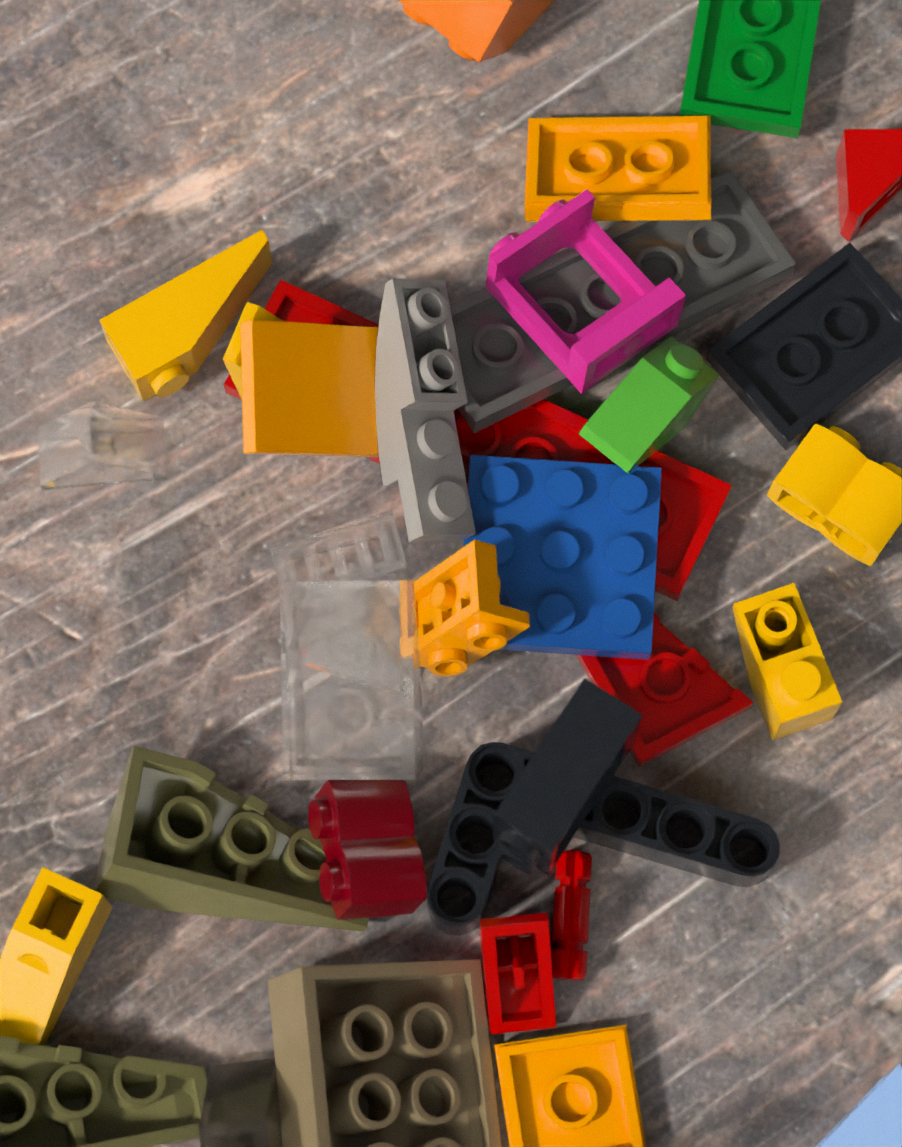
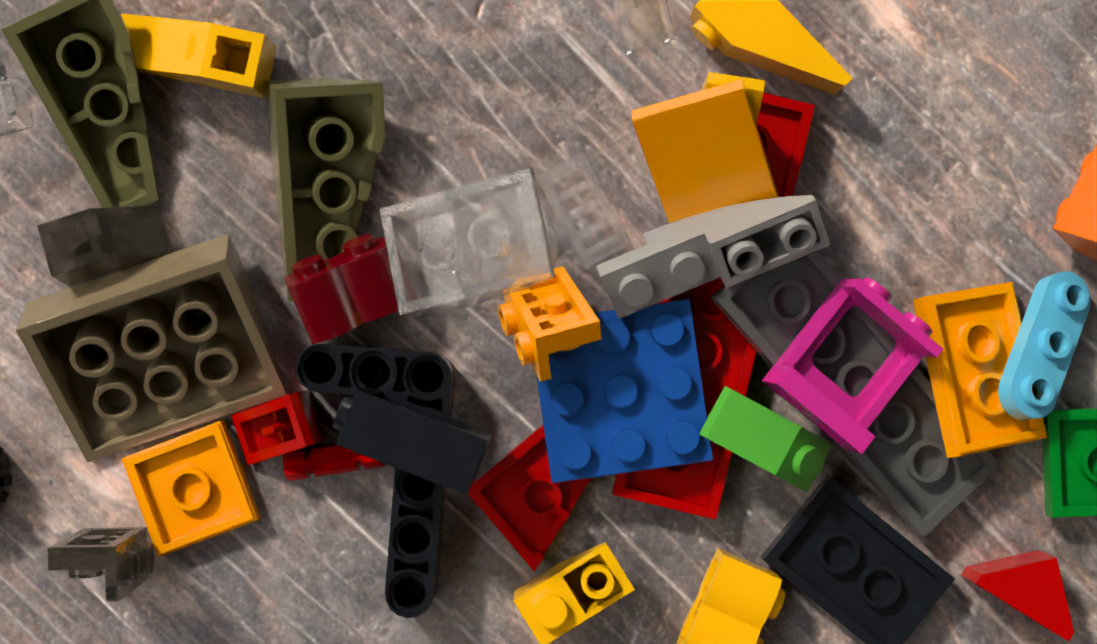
camera: 75 degrees right, 15 degrees up
(607, 97) = (1032, 358): none -> medium azure plate

